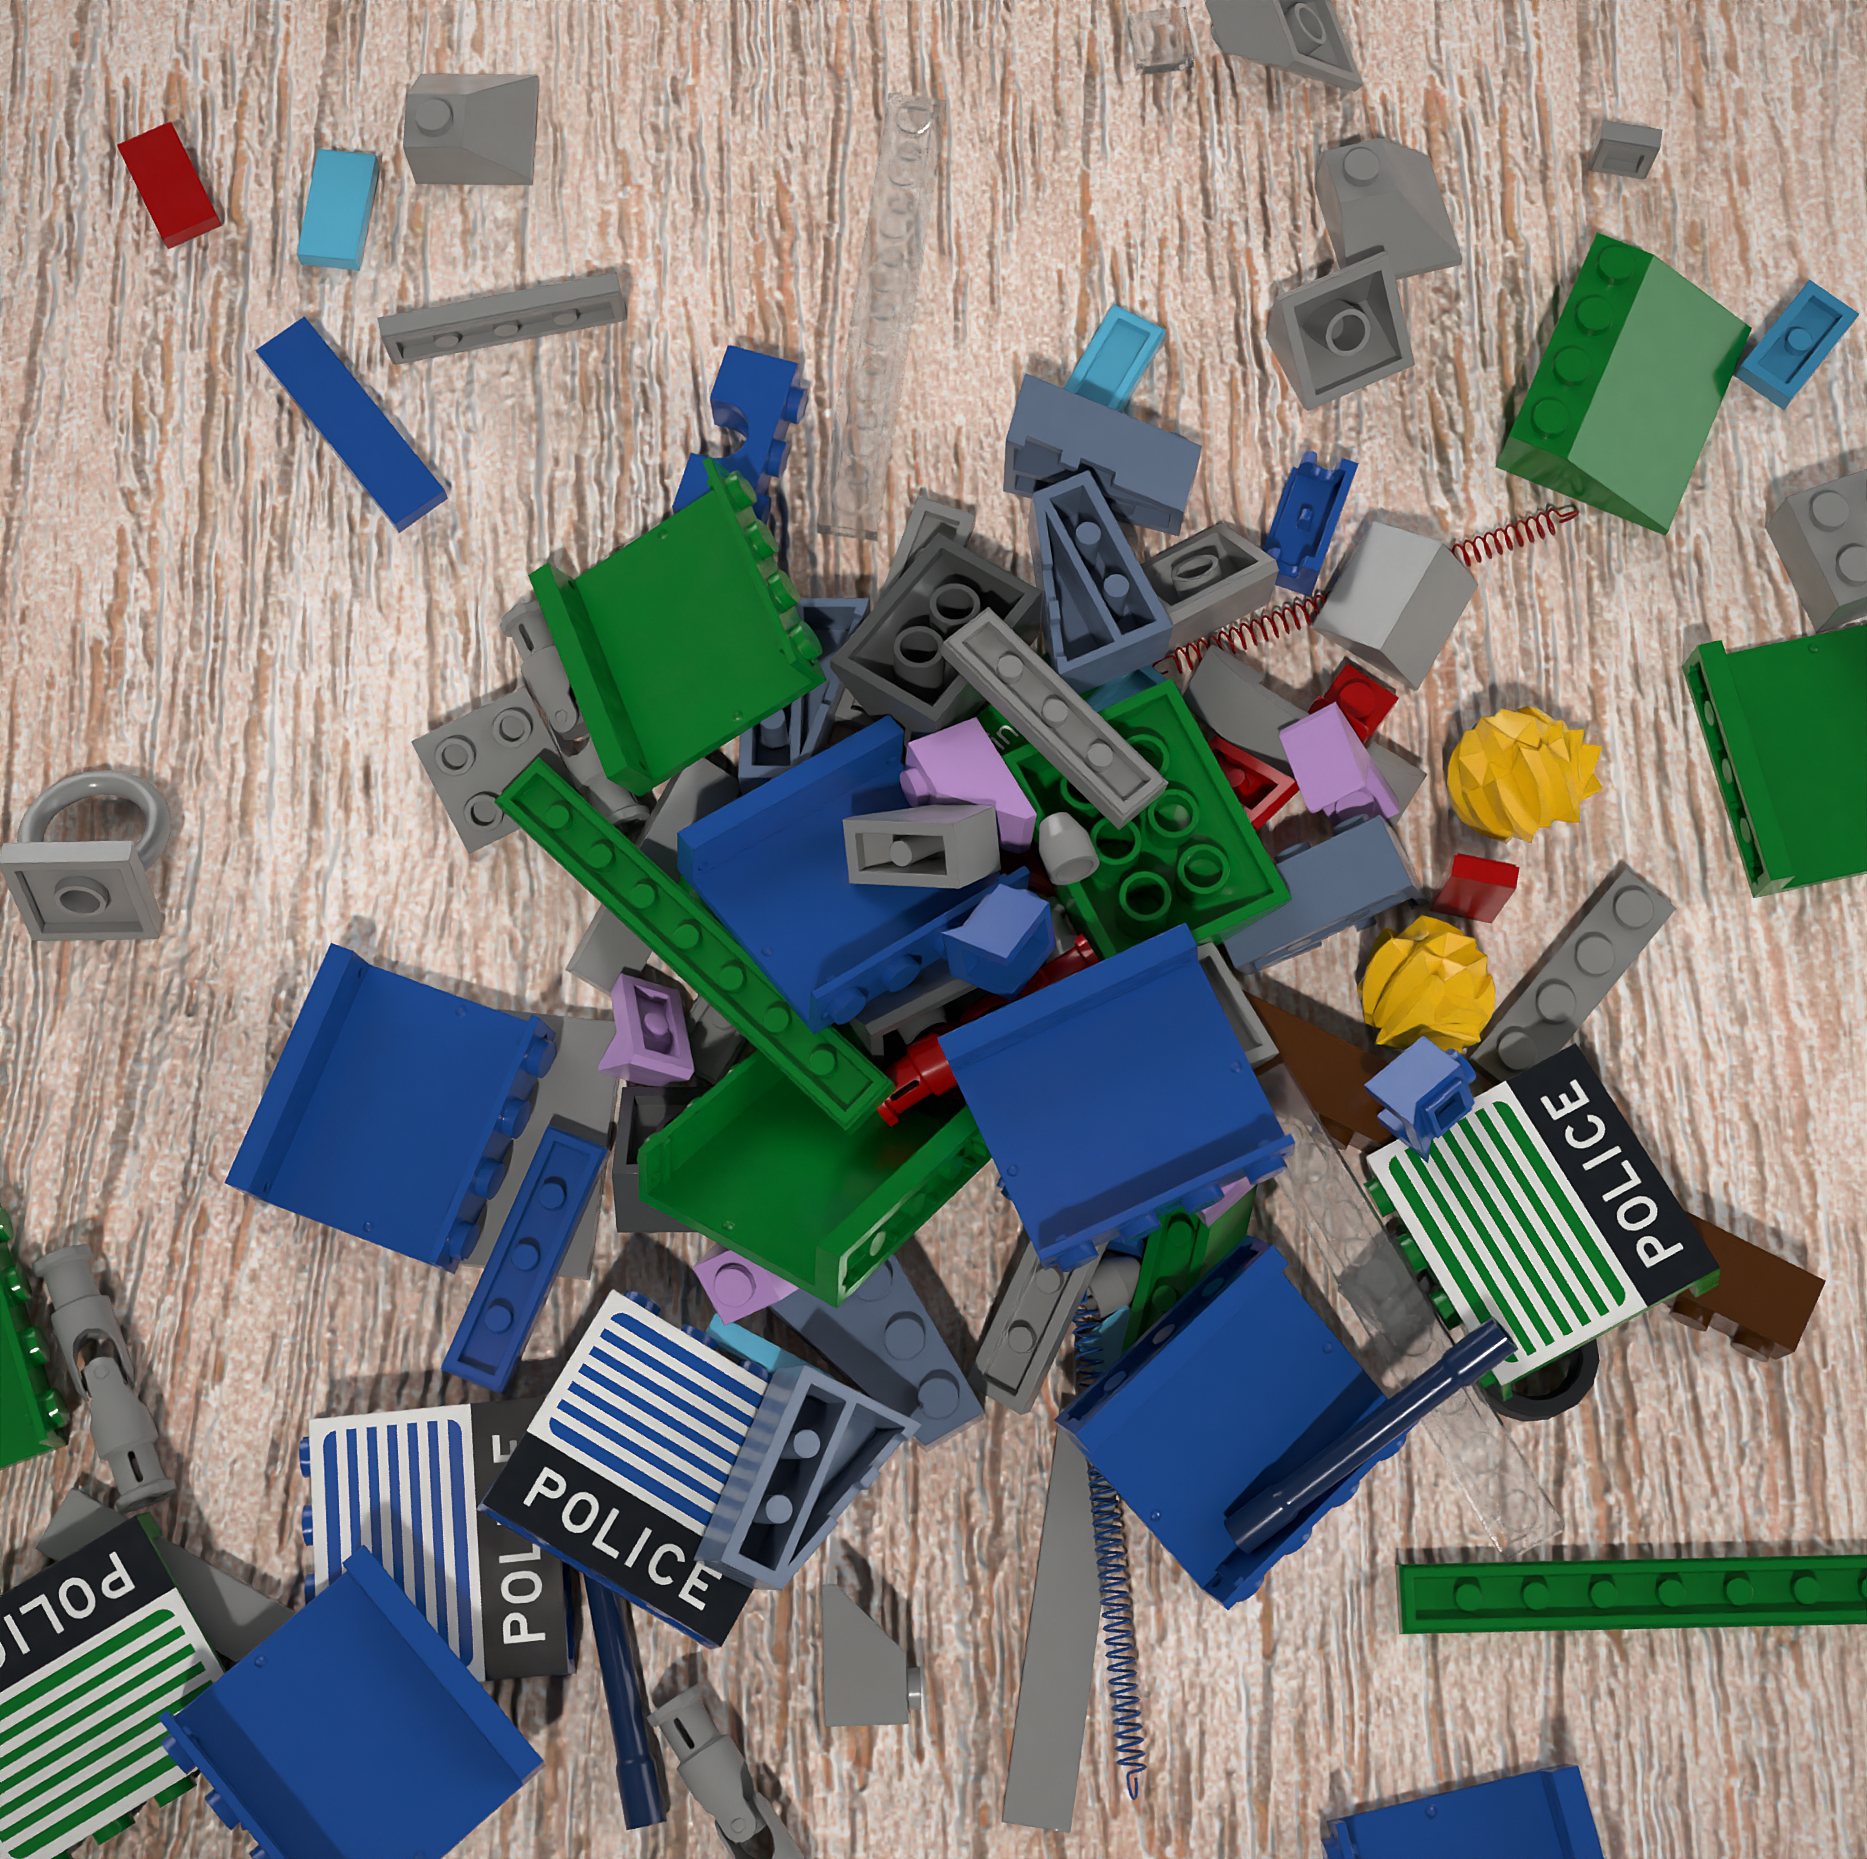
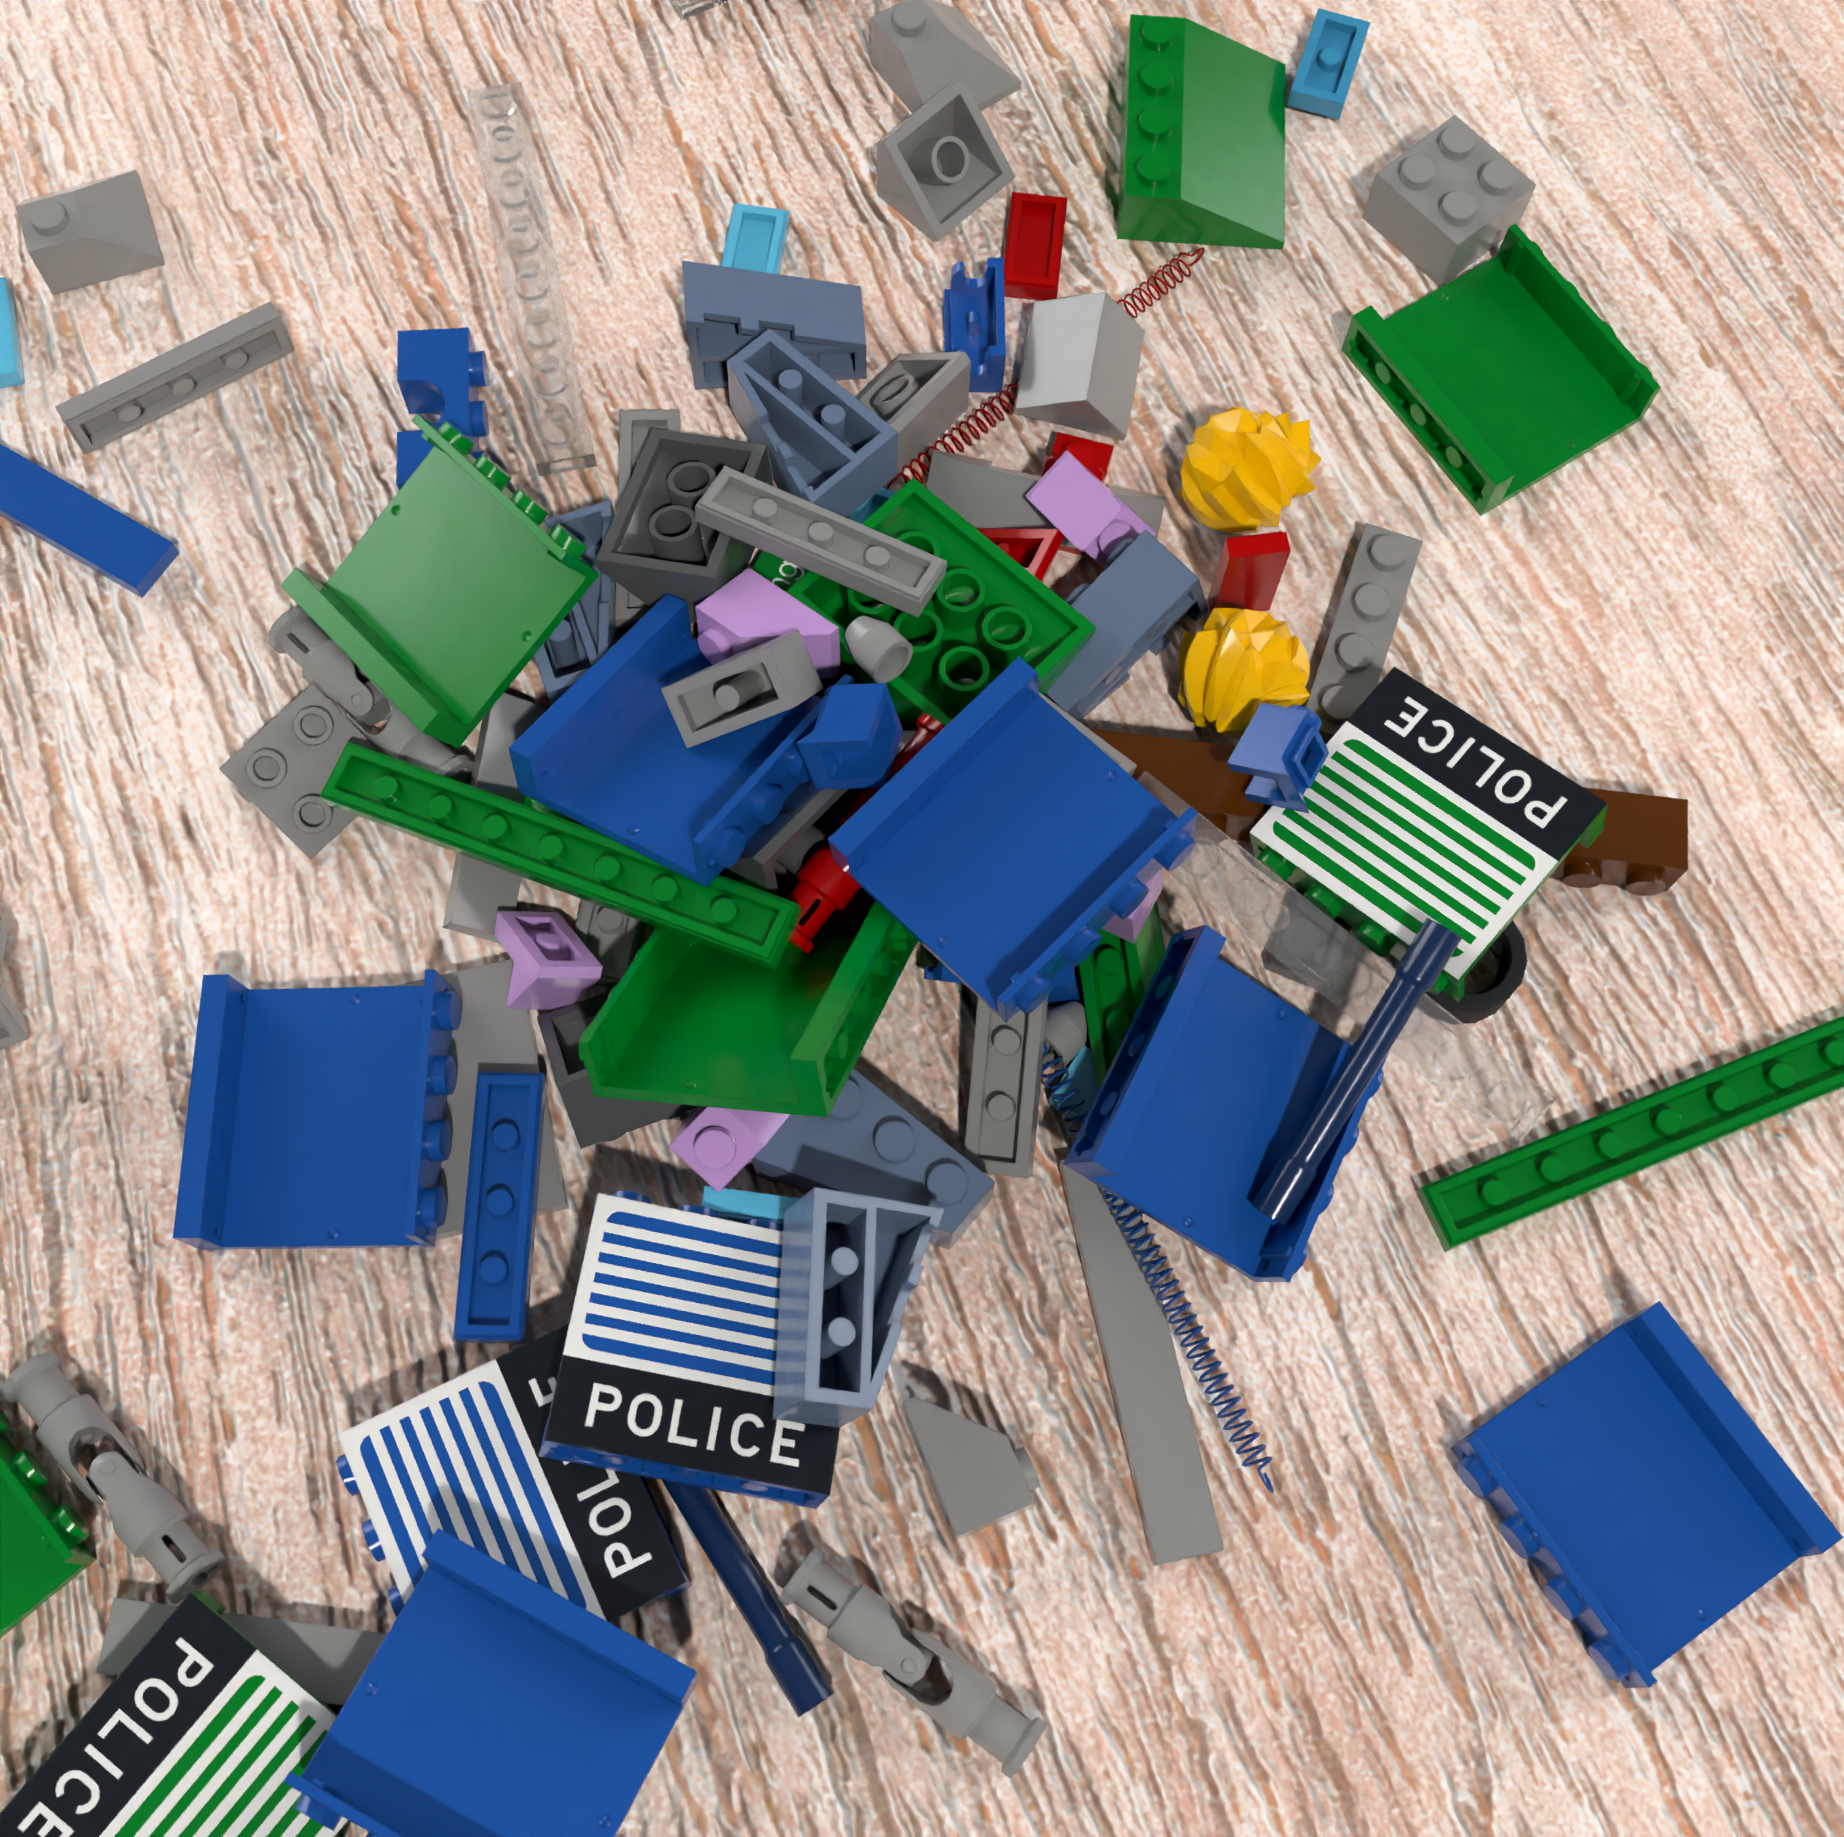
camera: 25 degrees left, 5 degrees down
(1403, 449) = (1034, 246): none -> red tile

